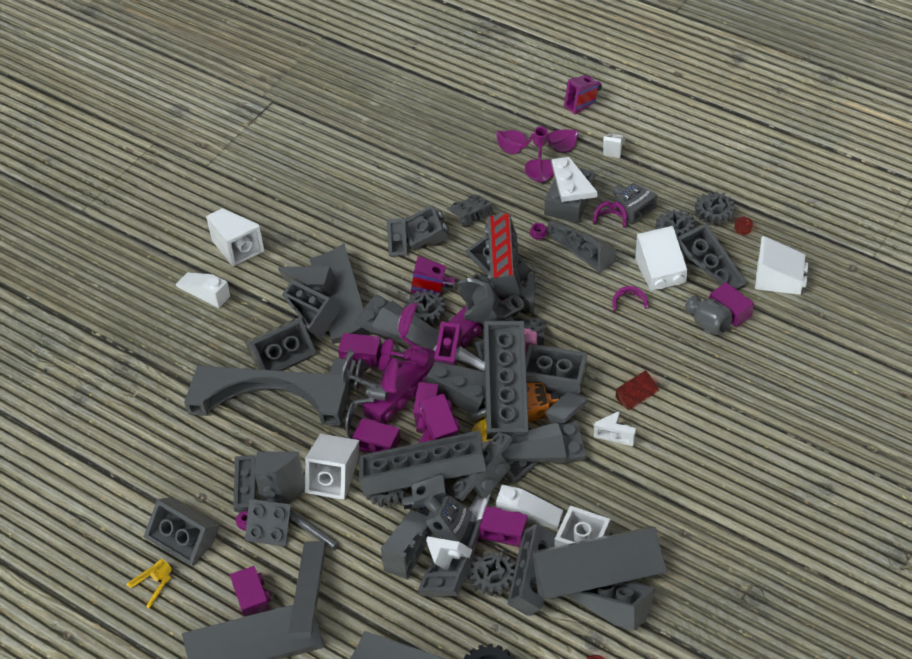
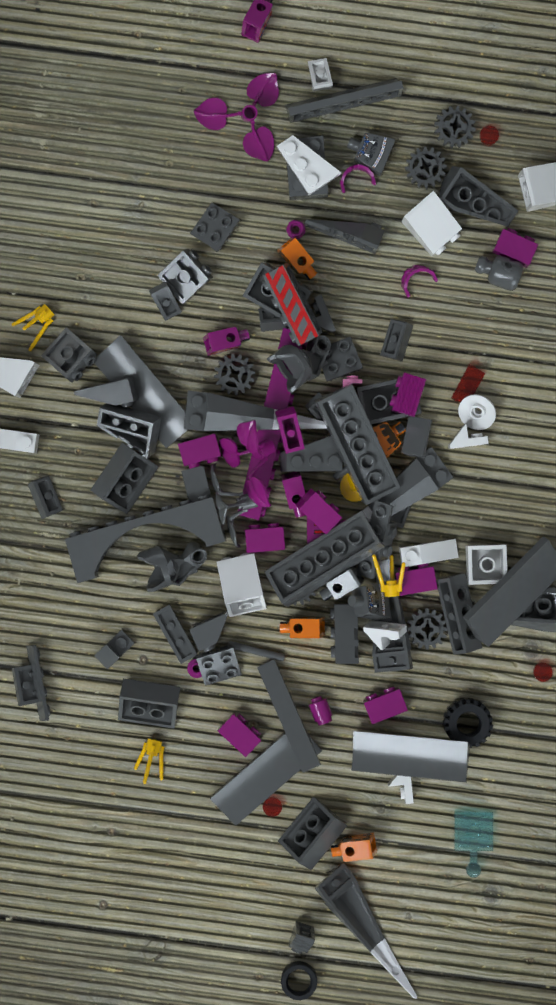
camera: 30 degrees left, 40 degrees up
(82, 471) = (30, 685): none -> dark grey bracket
(180, 476) = (114, 649): none -> dark grey slope
(203, 338) = (45, 497): none -> dark grey slope
(276, 423) = (170, 567): none -> dark grey piece
(290, 215) = (42, 314): none -> yellow plant
(293, 247) = (69, 355): none -> dark grey plate
(343, 604) = (320, 710): none -> magenta brick
(371, 520) = (312, 627): none -> orange torso
(411, 625) = (385, 705): none -> magenta brick
(476, 513) = (391, 588): none -> yellow plant
(529, 247) = (291, 252): none -> orange torso
(574, 359) = (408, 394): none -> magenta brick
(587, 336) = (396, 340): none -> dark grey slope
(626, 159) = (344, 100): none -> dark grey arch
(631, 405) = (472, 417): none -> white dish

